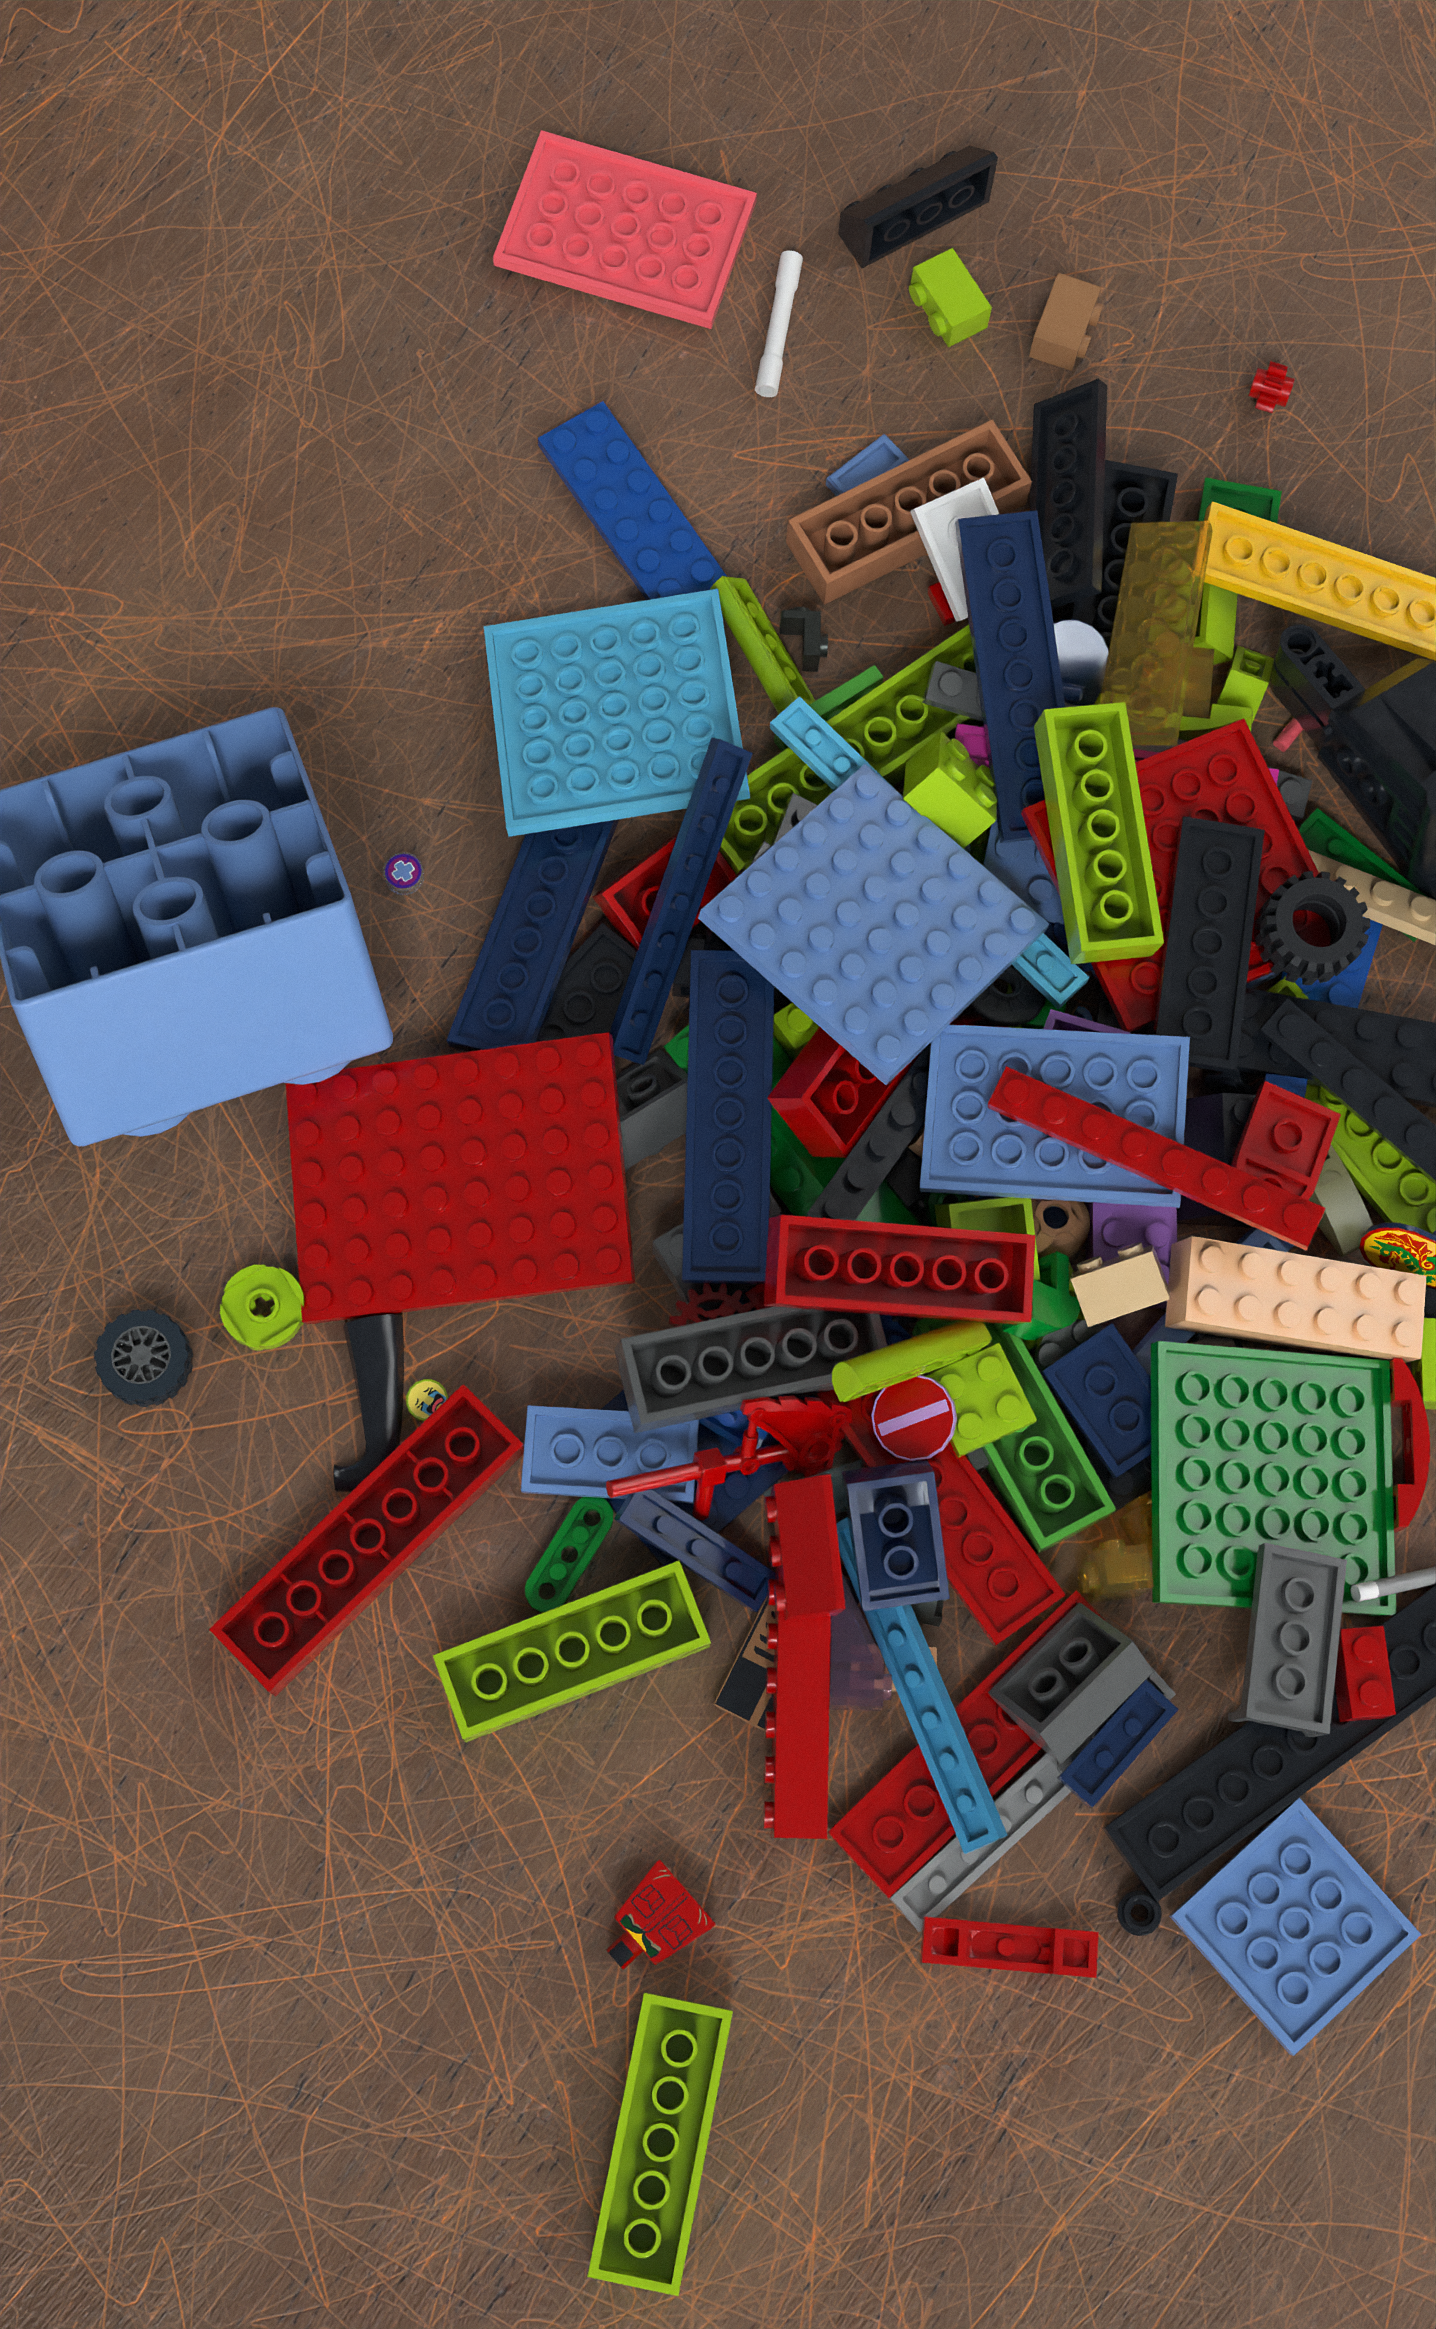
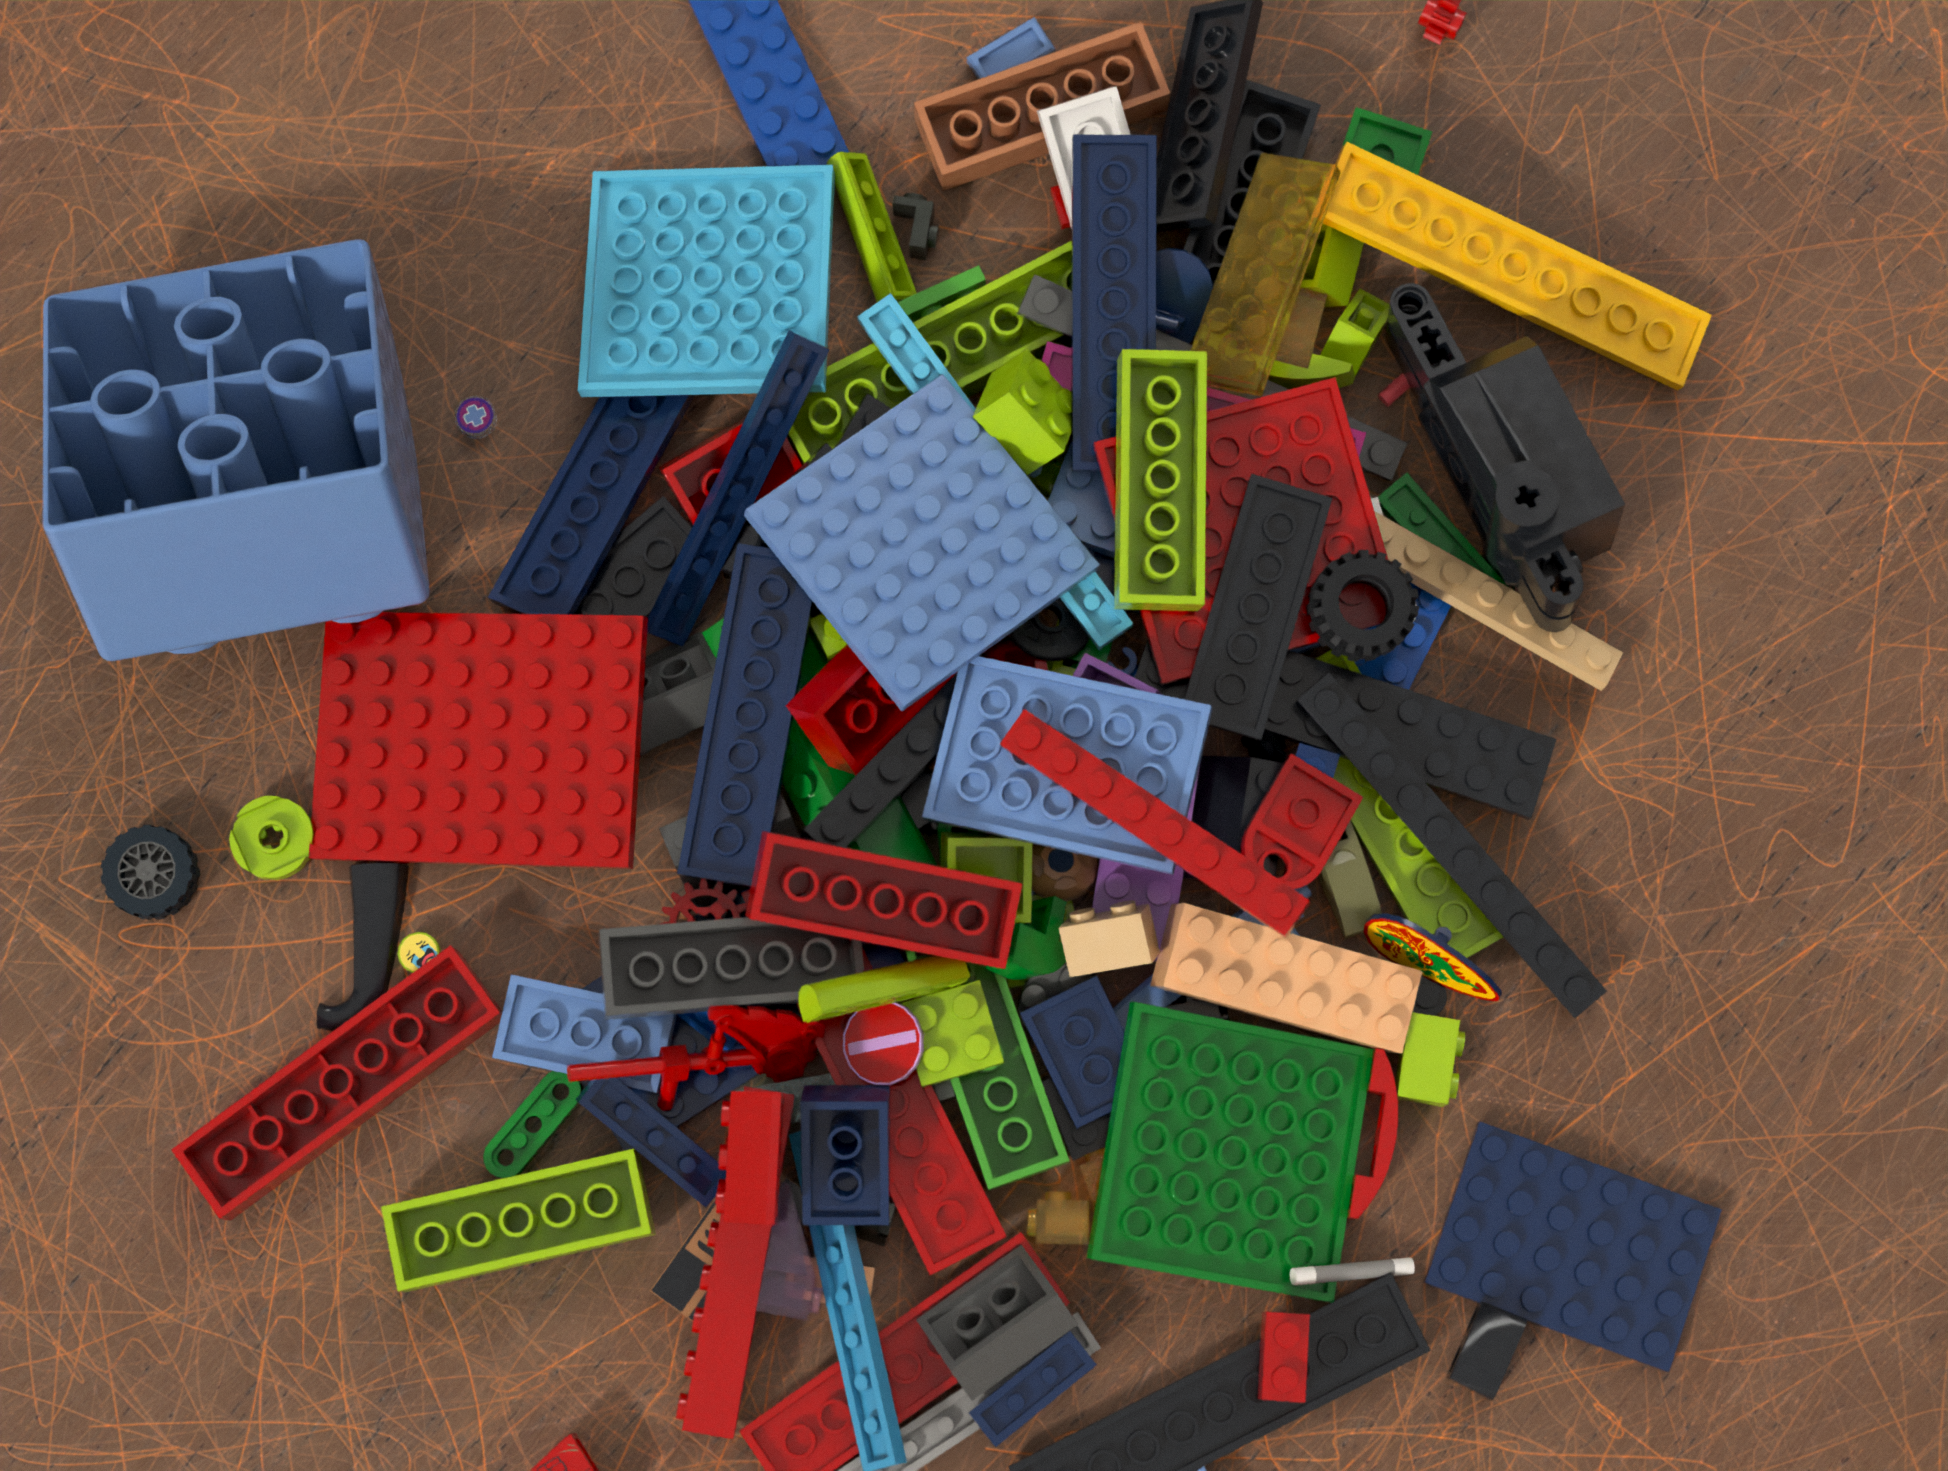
camera: 15 degrees right, 5 degrees up
(1293, 1640) = (1218, 1314): dark grey plate -> none

